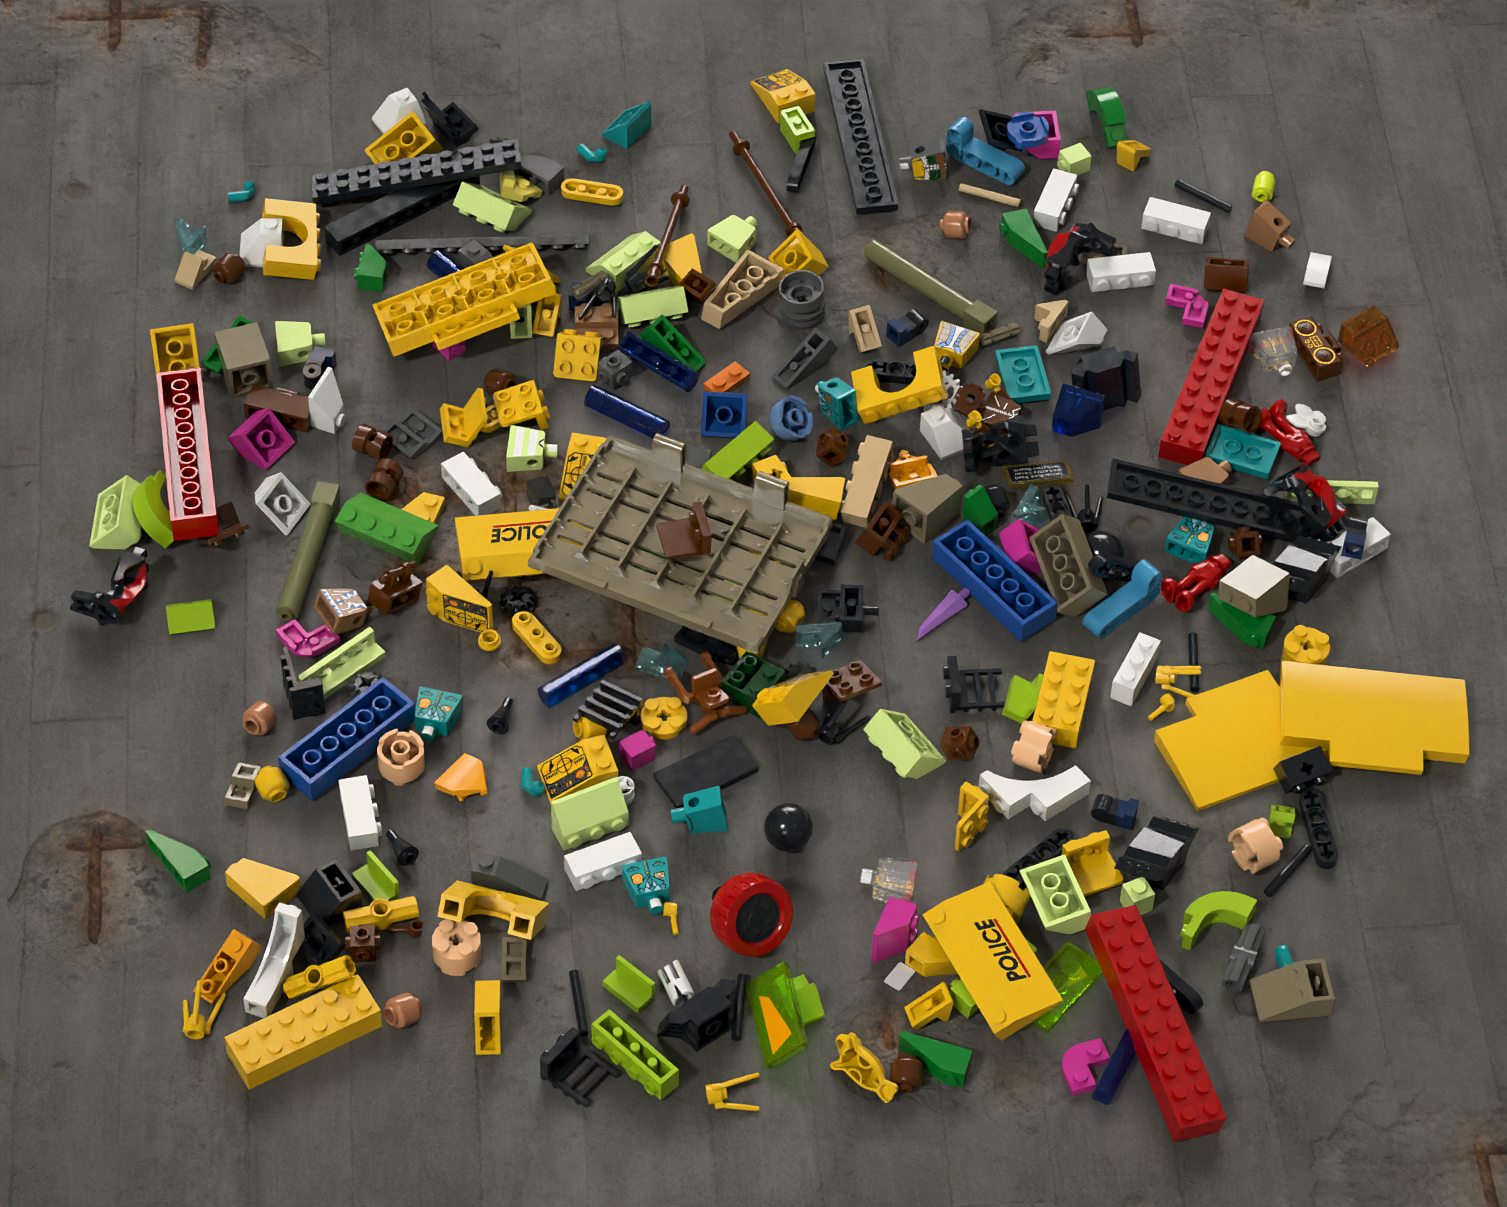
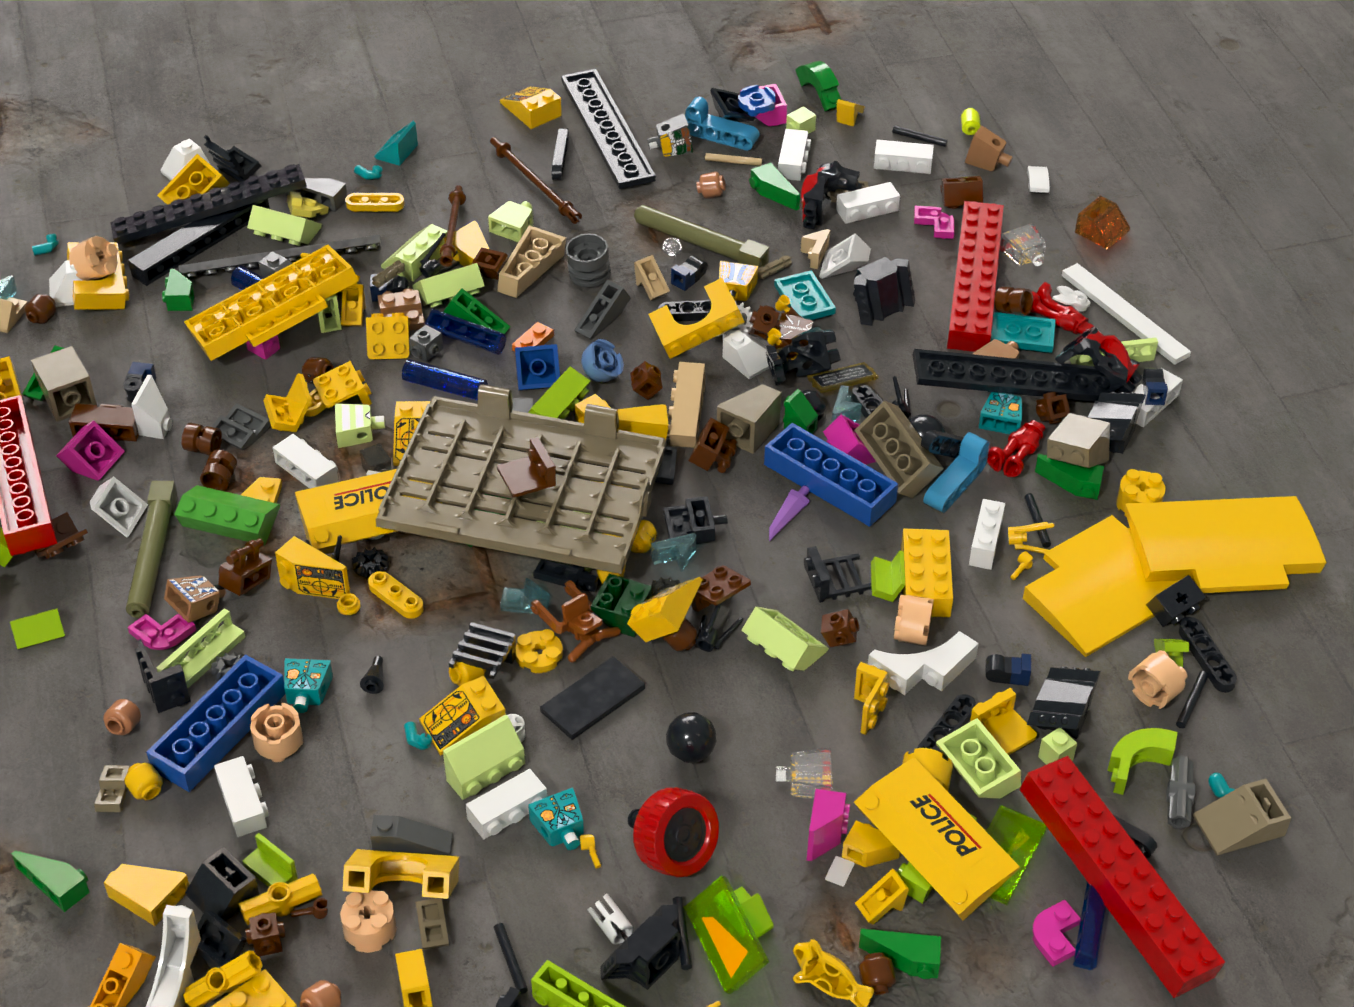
camera: 10 degrees left, 5 degrees down
(290, 223) = (94, 258): none -> light nougat brick
(296, 341) = (113, 362): yellowish green torso -> none
(404, 851) = (295, 828): black cone -> none
(463, 778) = (345, 743): light orange slope -> none
(581, 675) = (447, 624): clear blue brick -> none
(605, 292) = (404, 278): black plant -> none
(630, 985) = (562, 929): lime panel -> none
(637, 750) = (519, 686): dark pink brick -> none
(702, 811) = (599, 736): teal torso -> none
(795, 127) = (547, 126): lime panel -> none
(798, 254) = (574, 223): yellow slope -> none
(838, 402) = (642, 341): teal torso -> none
(896, 293) = (672, 246): none -> clear plate
(910, 470) = (721, 390): light orange slope -> none
(1077, 411) = (865, 317): clear blue slope -> none
(1317, 349) = (1061, 240): reddish brown piece -> none
(1361, 446) = (1125, 312): none -> white tile

